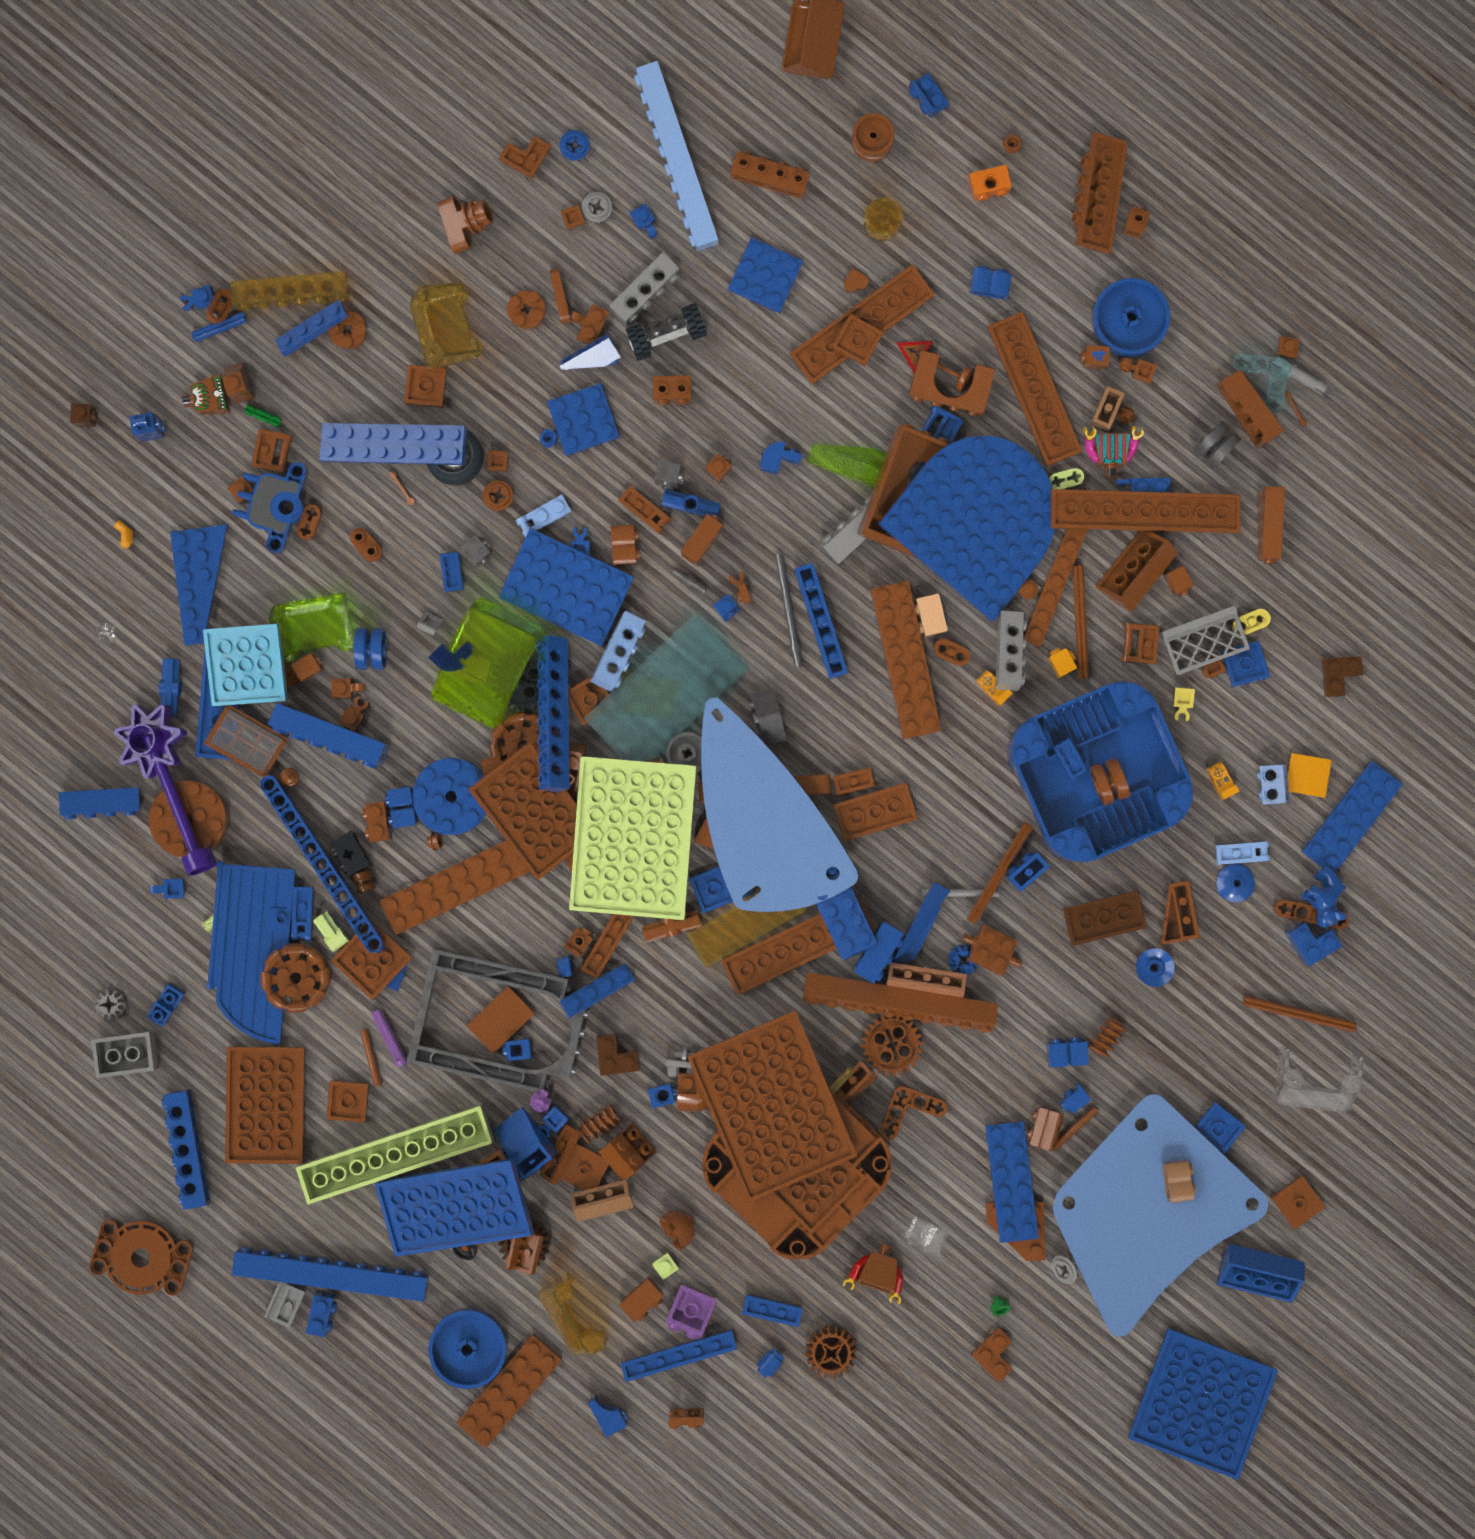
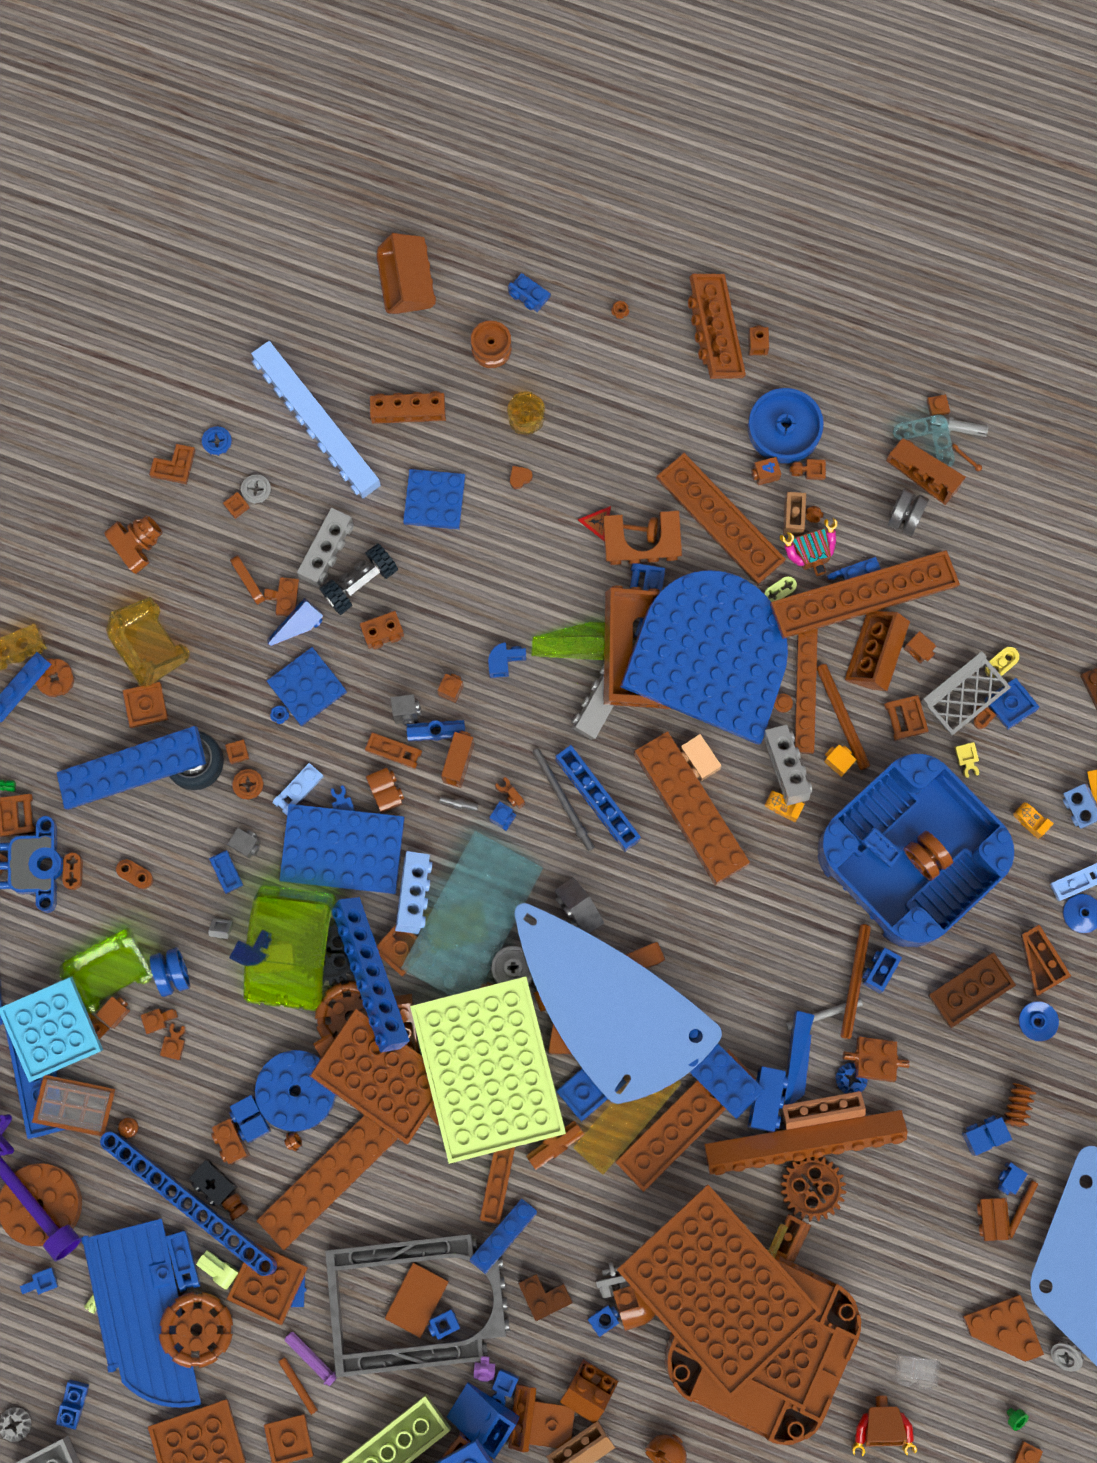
camera: 20 degrees left, 10 degrees down
(327, 734) = (150, 1071): blue brick -> none
(410, 501) = (165, 818): nougat hinge -> none
(529, 299) = (209, 600): dark orange plate -> none
(565, 966) = (463, 1222): blue slope -> none
(573, 947) = (462, 1198): dark orange brick -> none
(598, 1123) = (550, 1372): dark orange piece -> none
(643, 219) = (304, 485): blue plate -> none
(853, 781) = (683, 940): dark orange plate -> none
(857, 340) = (540, 527): dark orange plate -> none
(875, 812) = (714, 963): dark orange plate -> none
(880, 309) = (539, 513): dark orange plate -> none
(909, 1101) = (850, 1239): dark orange beam -> none
(951, 652) = (732, 784): dark orange plate -> none
(990, 283) = (645, 437): blue brick -> none
(998, 175) = (618, 341): orange brick -> none
(1011, 1182) = (981, 1286): blue plate -> none
(1270, 523) = (984, 566): dark orange slope -> none

